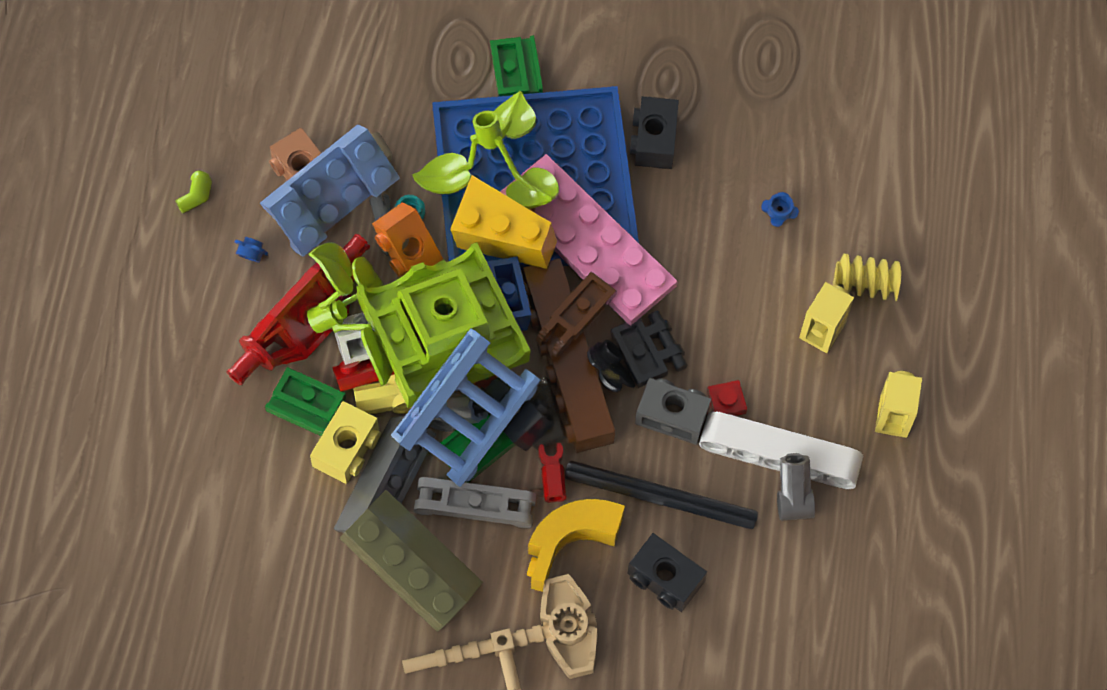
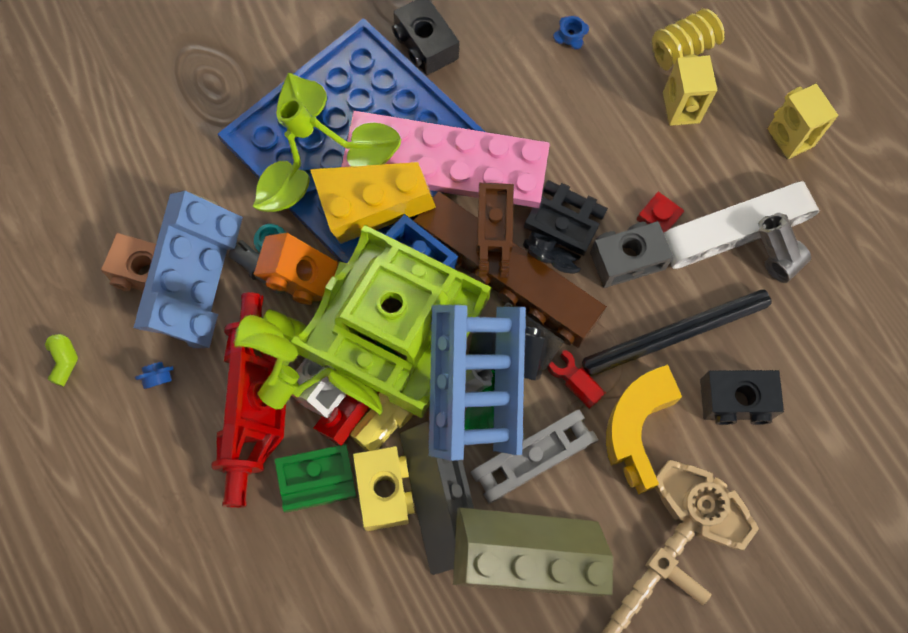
camera: 40 degrees left, 5 degrees up
(516, 66) = (264, 57): green plate -> none

